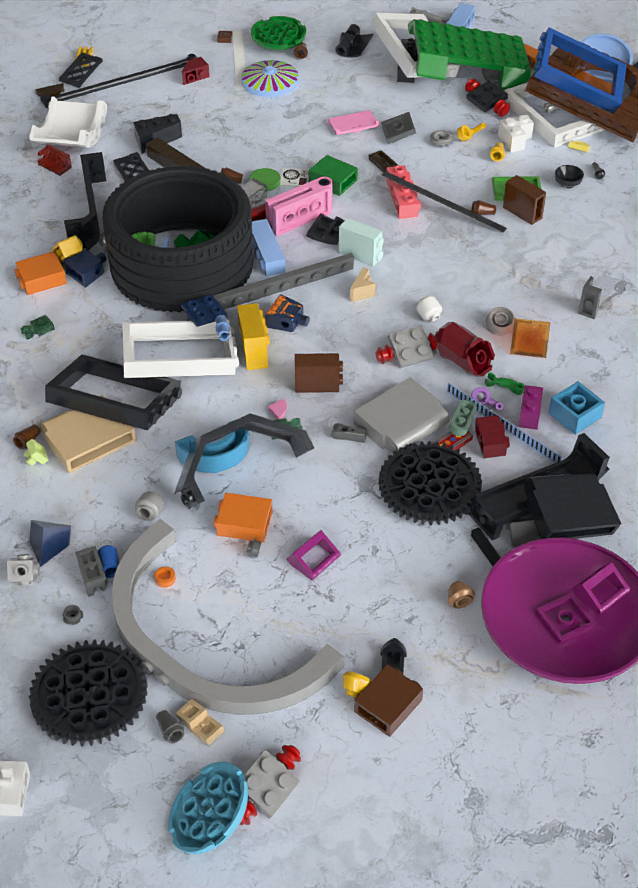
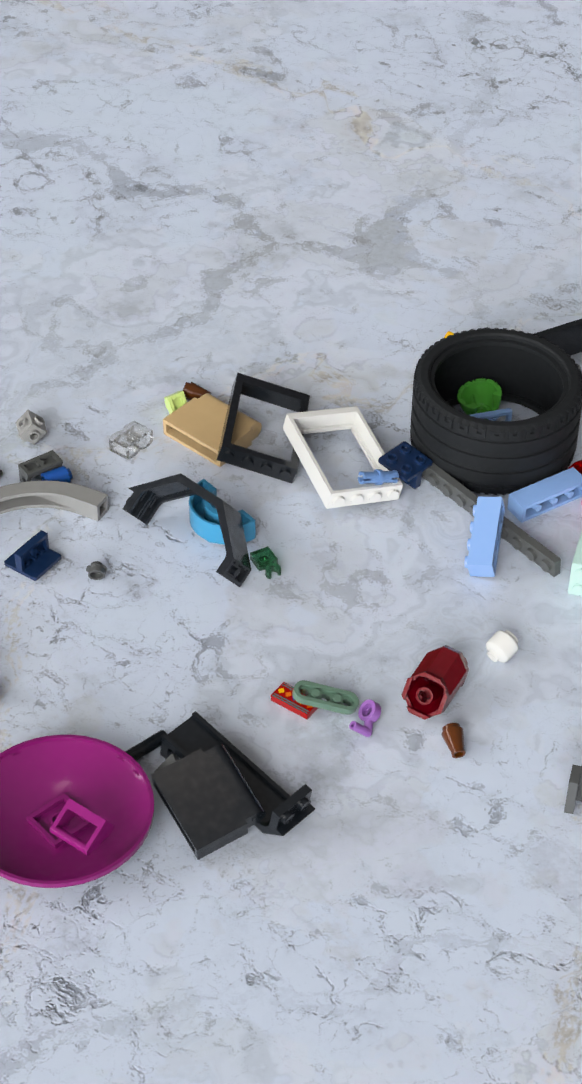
camera: 75 degrees right, 5 degrees down
(38, 326) = (350, 366): clear green plate -> none
(40, 273) = (417, 339): orange brick -> none
(48, 539) = (72, 435): dark blue slope -> none
(75, 494) = (131, 440): none -> clear brick
(149, 506) = (123, 485): light grey head -> none
(164, 577) = (51, 521): orange tile -> none
(217, 596) = (33, 557): none -> dark blue bracket
(243, 517) = (133, 556): orange brick -> none
(253, 335) = (391, 508): yellow wedge -> none
(278, 409) = (295, 554): bright pink tile -> none
(286, 315) = (440, 530): dark blue torso -> none
(312, 285) = (485, 537): none -> light blue brick
(318, 373) = (346, 565): reddish brown brick -> none
(323, 541) = (89, 601): magenta tile -> none
(350, 433) = (276, 615): dark grey bar -> none
(362, 286) = (517, 581): tan slope -> none
(401, 416) = (313, 648): light grey piece -> none
(408, 347) = (423, 633): light grey plate -> none
(429, 482) = (222, 685): black gear -> none
(460, 595) = (70, 726): medium nougat cone -> none
(491, 436) = (307, 728): dark red brick -> none
(500, 321) = (512, 716): light grey hat -> none
(513, 386) = (405, 739): green arm -> none
(518, 356) = (454, 738): none -> reddish brown cone
(518, 433) = (334, 738): light blue sticker -> none
(530, 338) = (490, 745): clear orange slope -> none
(531, 407) = (365, 756): magenta brick -> none
(576, 407) = (375, 796): dark azure brick -> none

